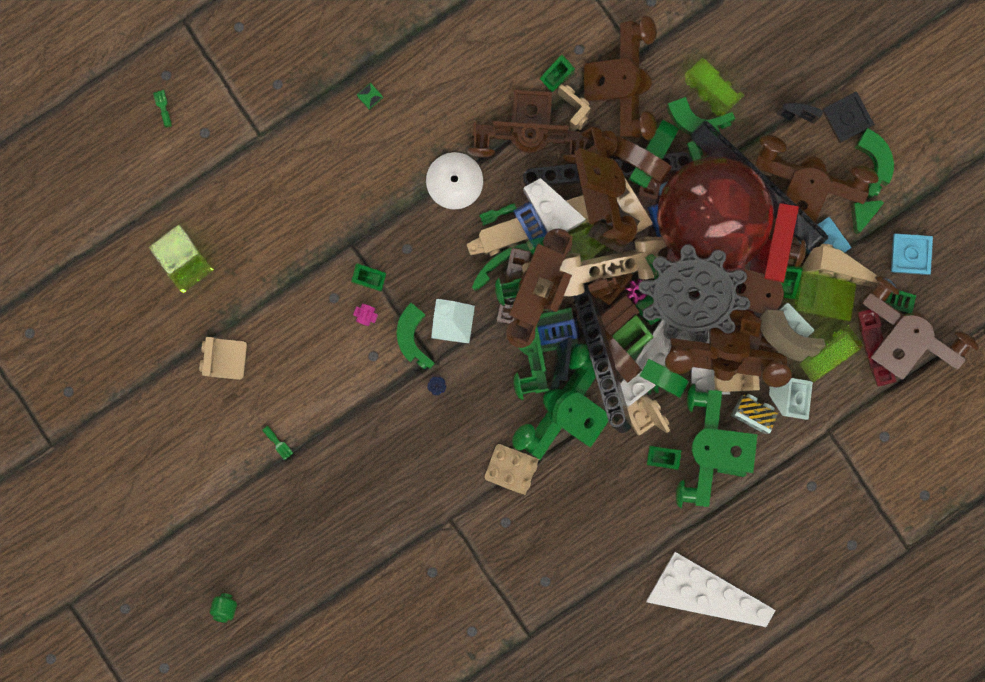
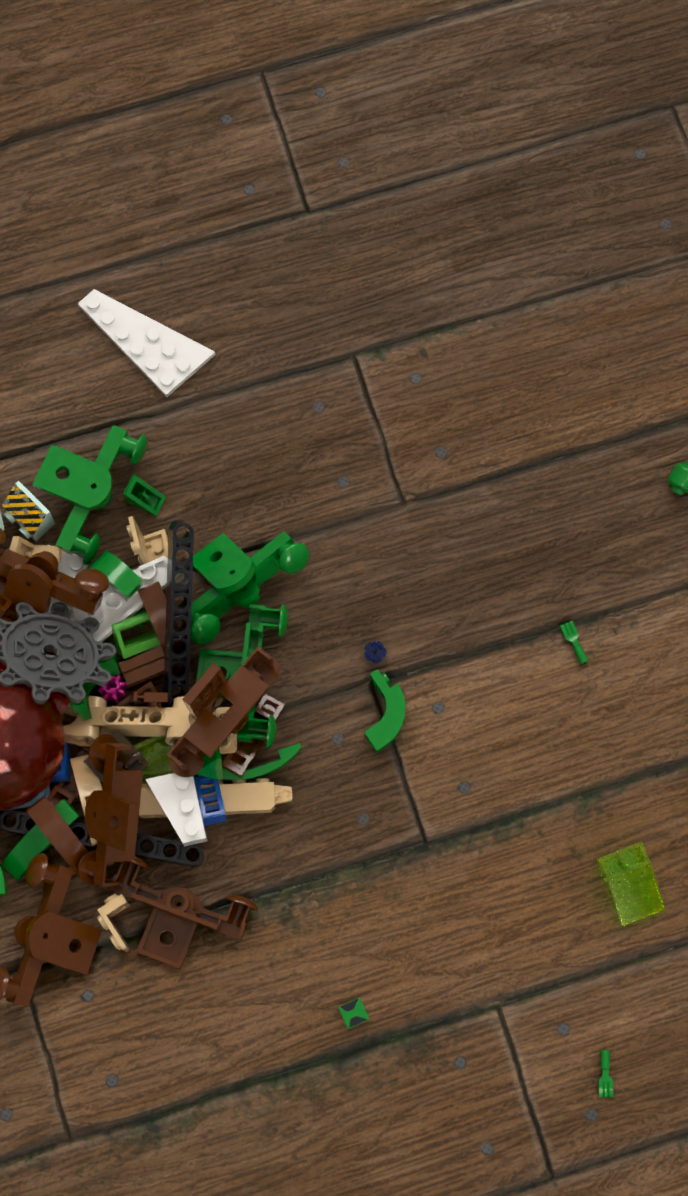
camera: 165 degrees left, 10 degrees down
(223, 358) = (611, 753): tan bracket -> none
(365, 314) = (433, 754): dark pink gear -> none
(368, 277) = (417, 796): green slope -> none
(452, 321) = (334, 719): light aqua slope -> none
(454, 194) = (291, 897): white dish -> none
(492, 216) = (252, 827): green piece -> none
(511, 469) = (320, 534): tan bracket -> none
(558, 73) = (122, 971): green slope -> none
(561, 363) = (225, 629): black slope -> none
(574, 326) = (218, 660): blue slope -> none

